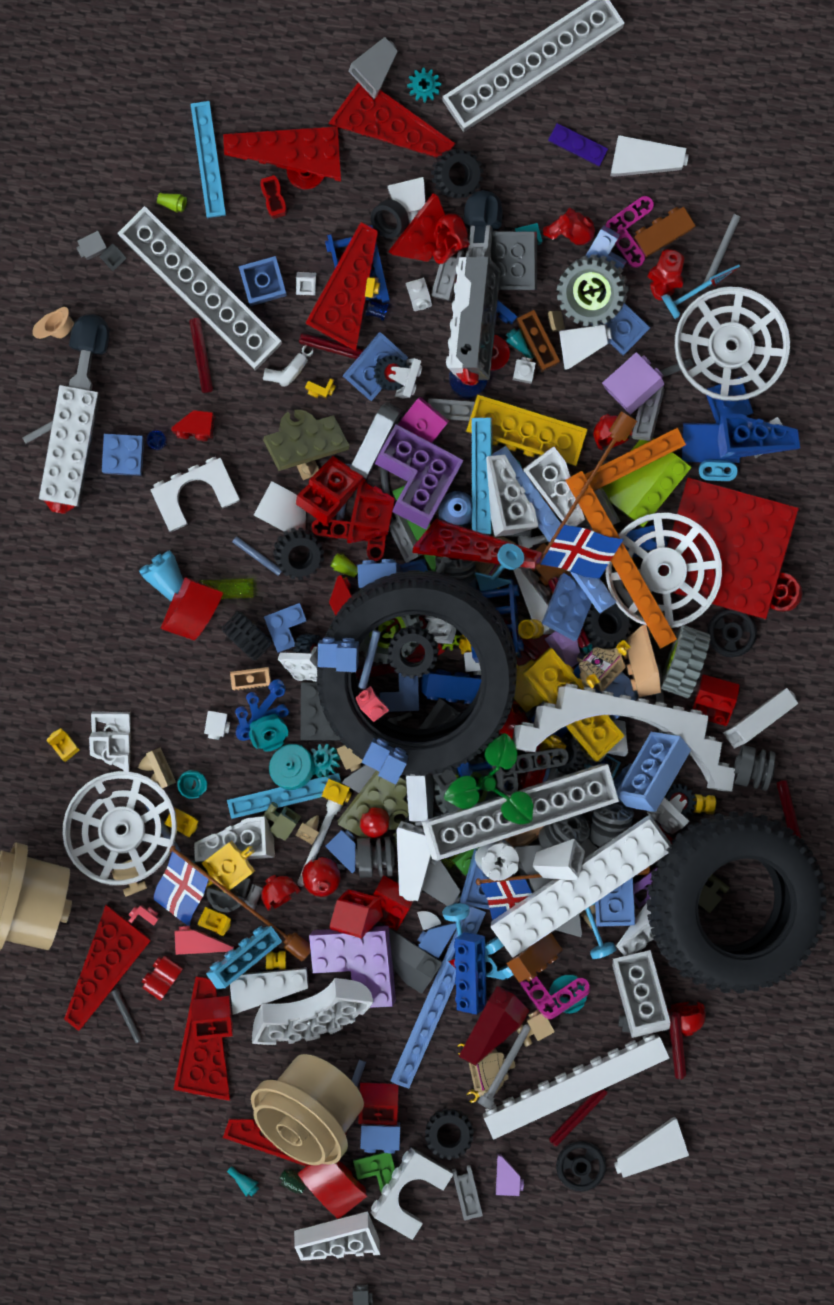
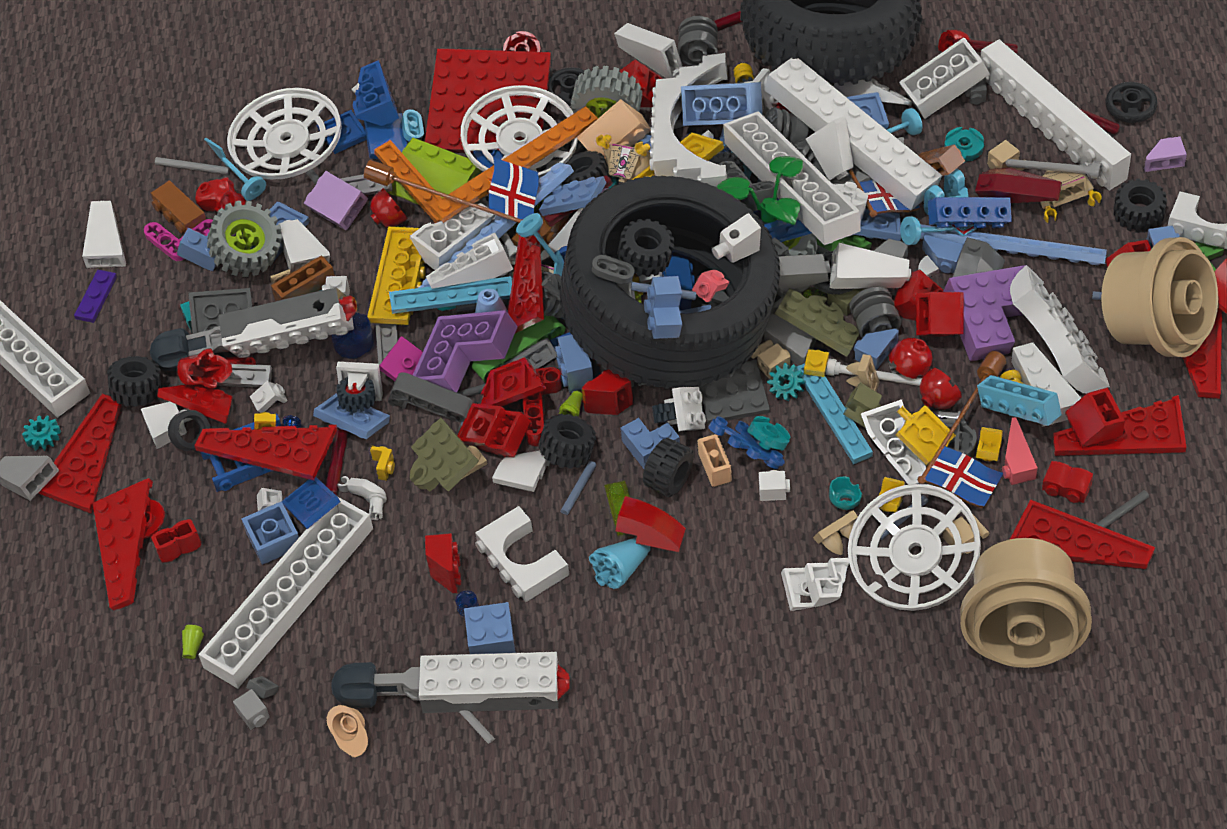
camera: 100 degrees left, 35 degrees down
(63, 744) = (836, 626): yellow bracket -> none
(148, 914) = (1001, 516): coral bracket -> none
(201, 355) = (363, 581): dark red axle -> none
(208, 159) = (139, 616): medium azure plate -> none
(282, 318) = (310, 502): none -> blue tile
(291, 767) = (800, 407): teal wheel -> none
(375, 822) = (840, 314): red hair -> none
(386, 760) = (767, 259): medium blue brick -> none
(394, 616) = (613, 269): none -> dark grey plate
(412, 746) = (739, 239): none -> white torso
(467, 1194) = (1196, 182): light grey hinge -> none
(548, 1000) = (975, 148): dark pink beam -> none
(573, 226) = (180, 275): red head -> none
(653, 1150) = (1093, 51): white slope -> none

